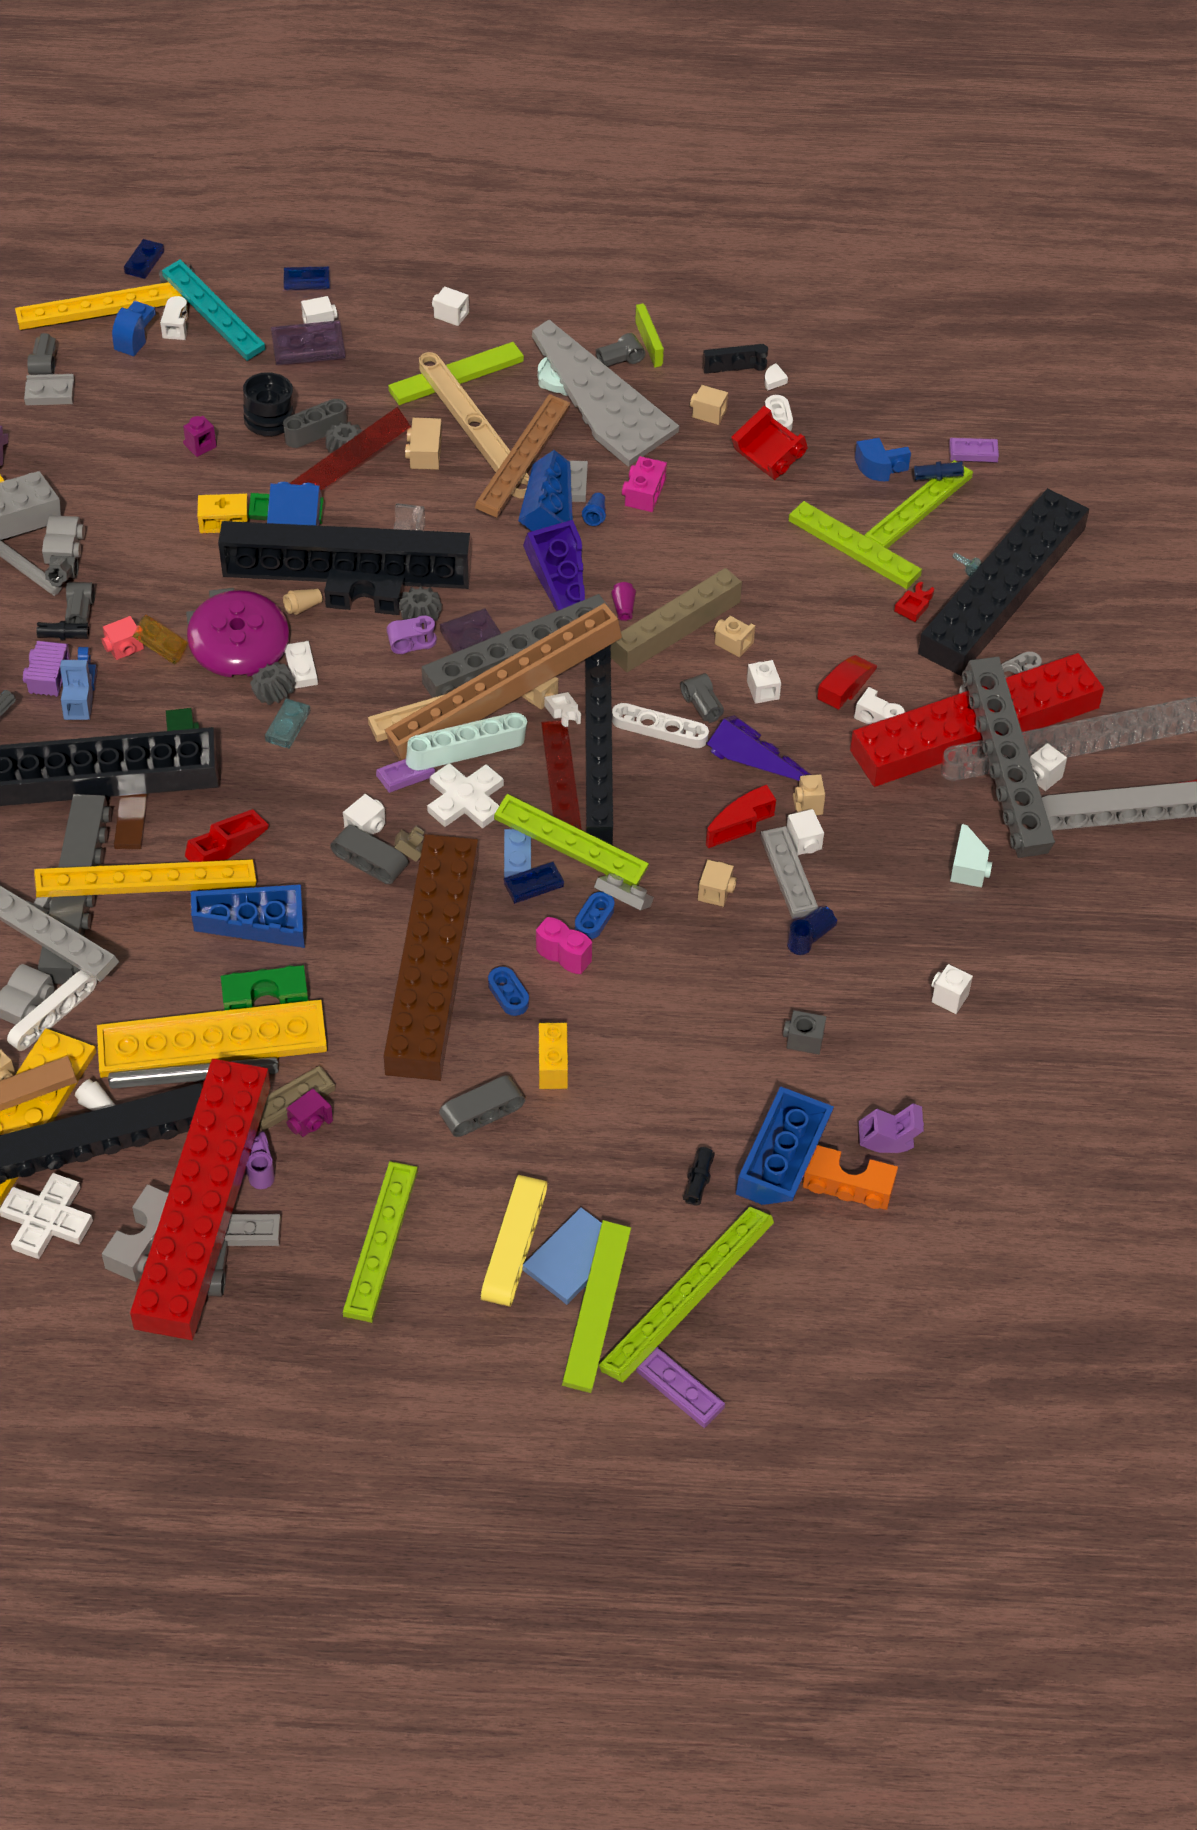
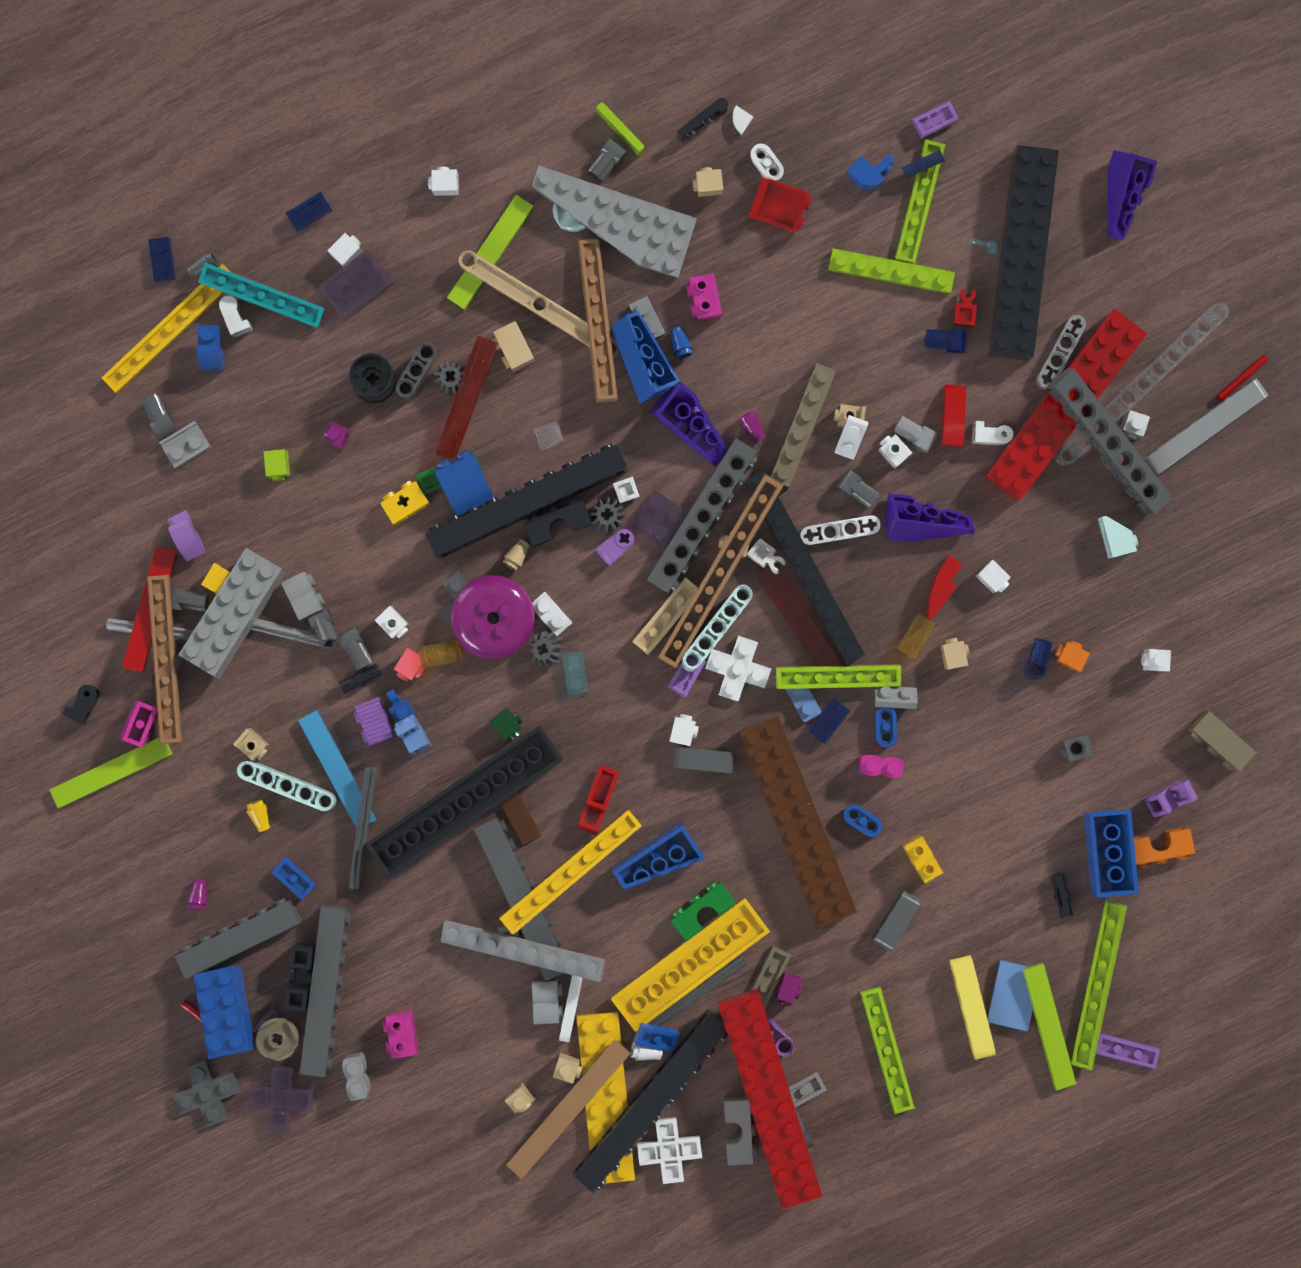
camera: 25 degrees left, 35 degrees up
(116, 1081) = (656, 1037): none -> blue plate
(123, 433) = (277, 464): none -> lime brick
(133, 602) = (392, 623): none -> white brick
(410, 843) = (728, 739): dark tan tile -> none
(455, 596) = (626, 490): none -> white plate
(683, 849) = (916, 636): none -> clear yellow plate
(723, 646) = (851, 437): none -> white plate
(789, 872) = (996, 613): light grey tile -> none
(798, 681) = (920, 437): none -> light grey piece
(809, 794) = (980, 542): tan brick -> none
(852, 943) = (1071, 655): none -> orange brick
(884, 620) = (951, 340): none -> clear blue piece
(988, 1105) = (1221, 741): none -> dark tan brick
(1151, 573) = (1126, 182): none -> dark purple wedge

